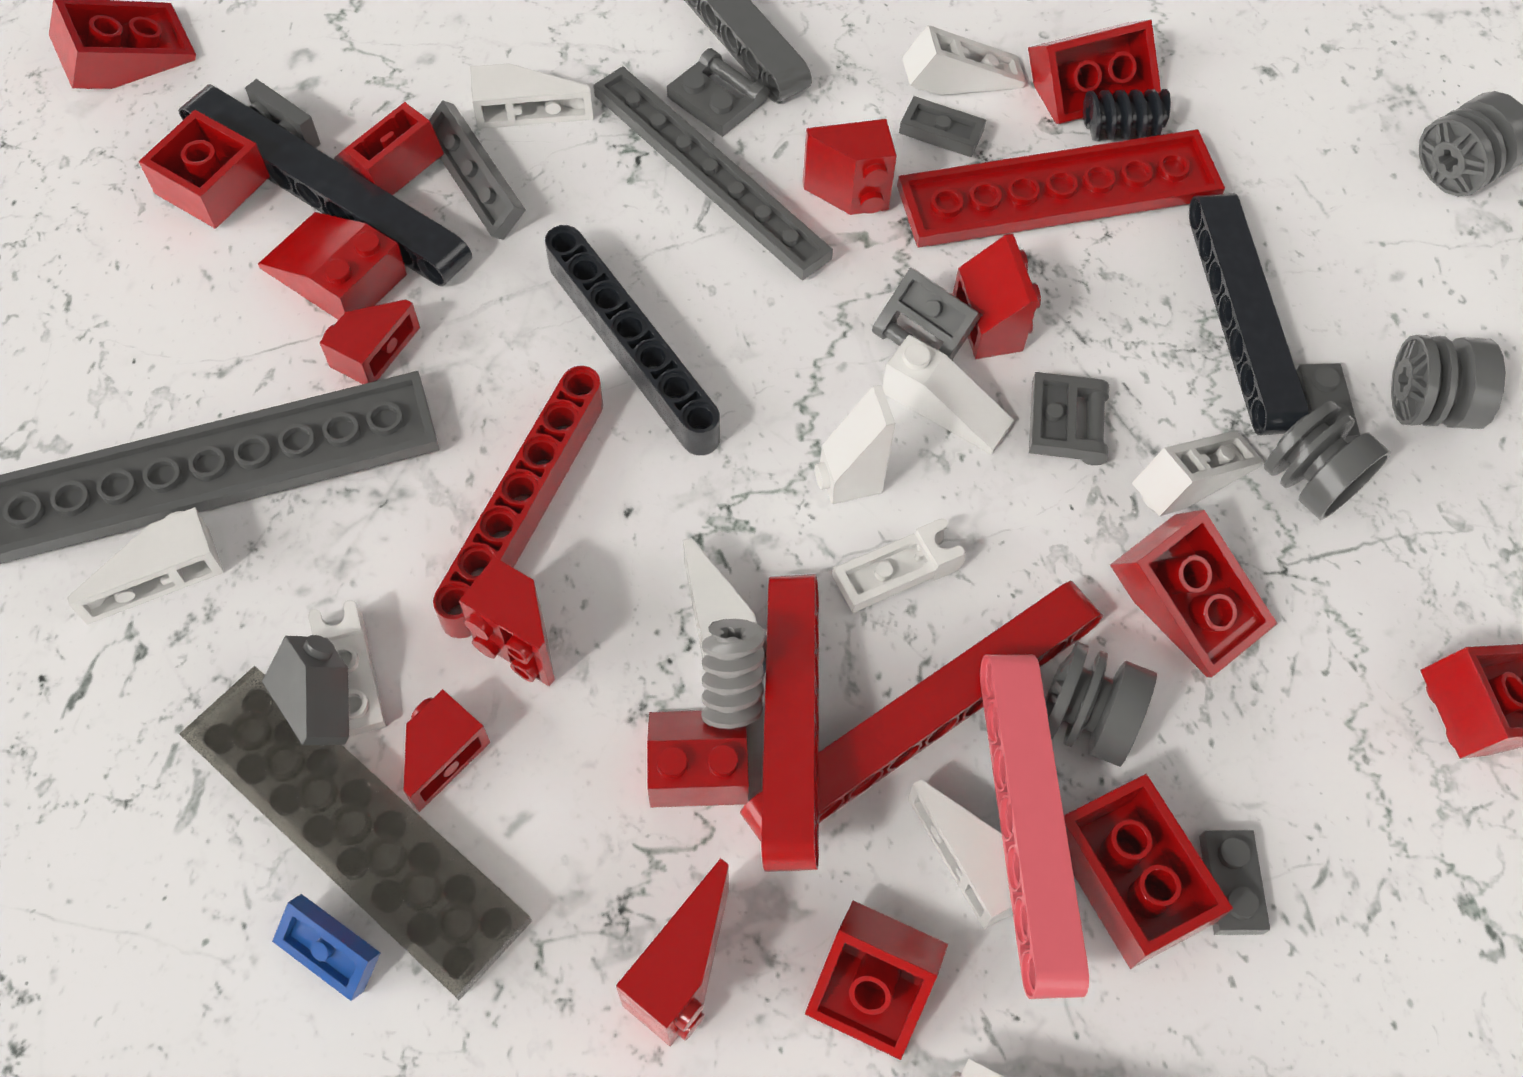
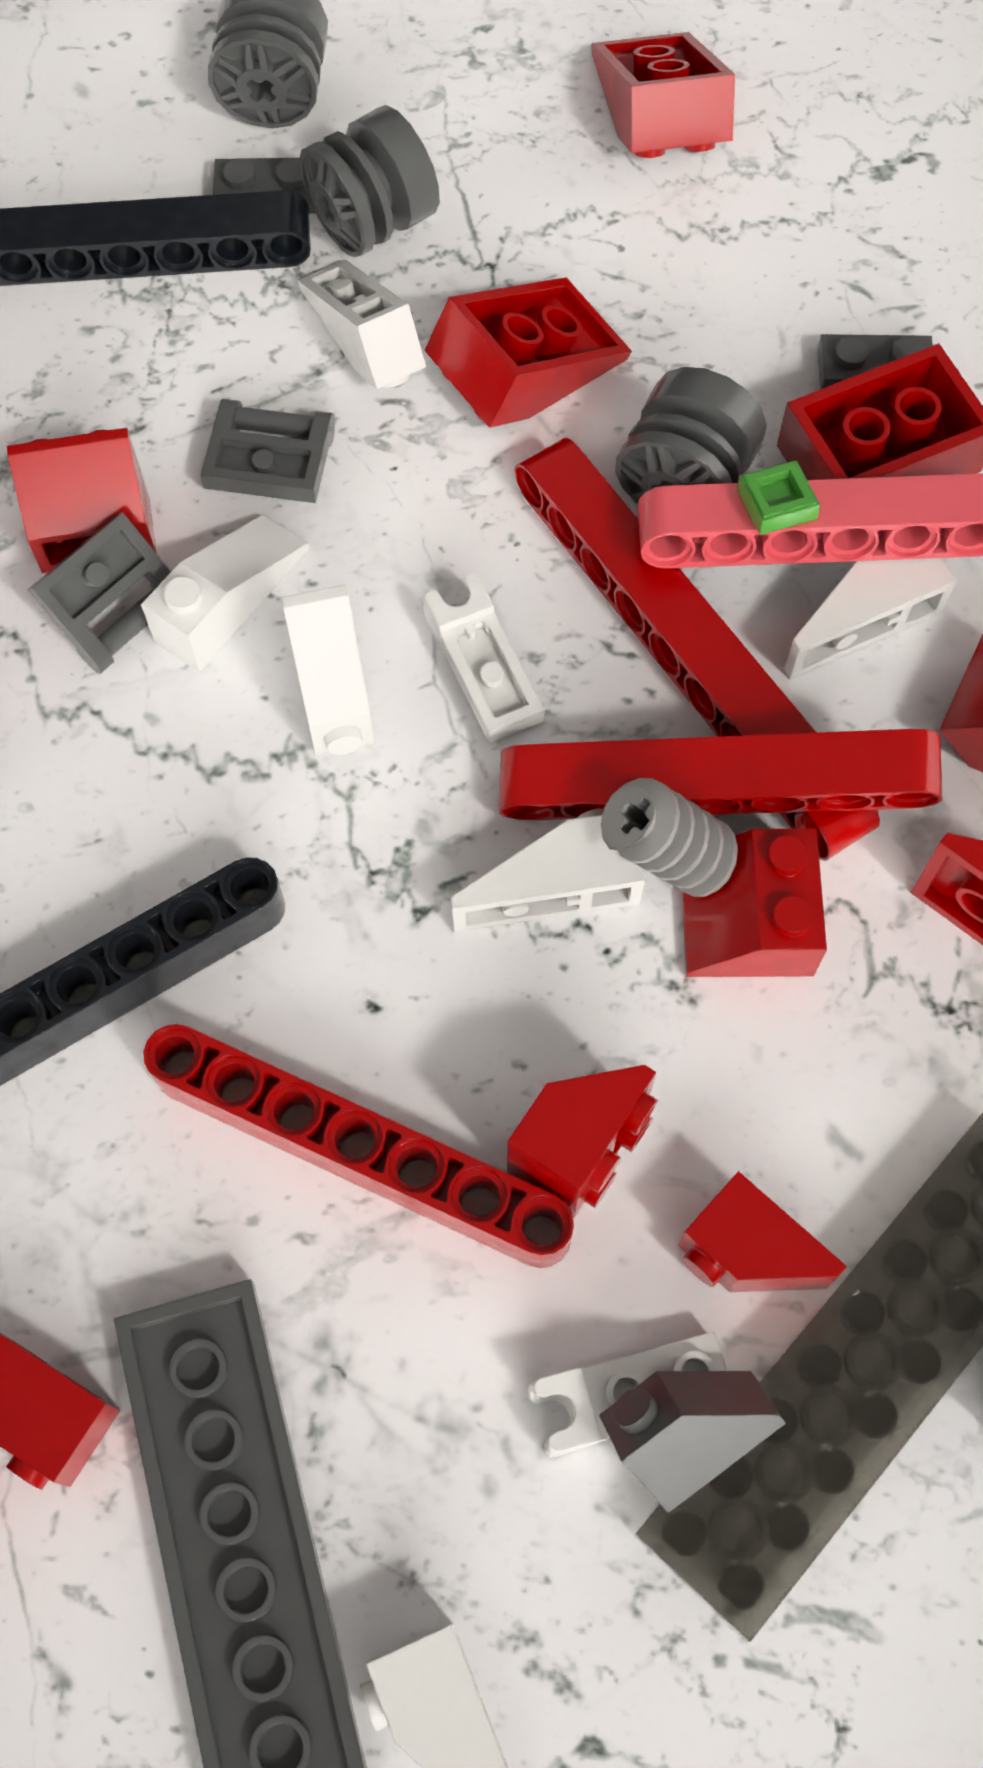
camera: 85 degrees left, 5 degrees up
(1031, 747) = (778, 497): none -> bright green tile

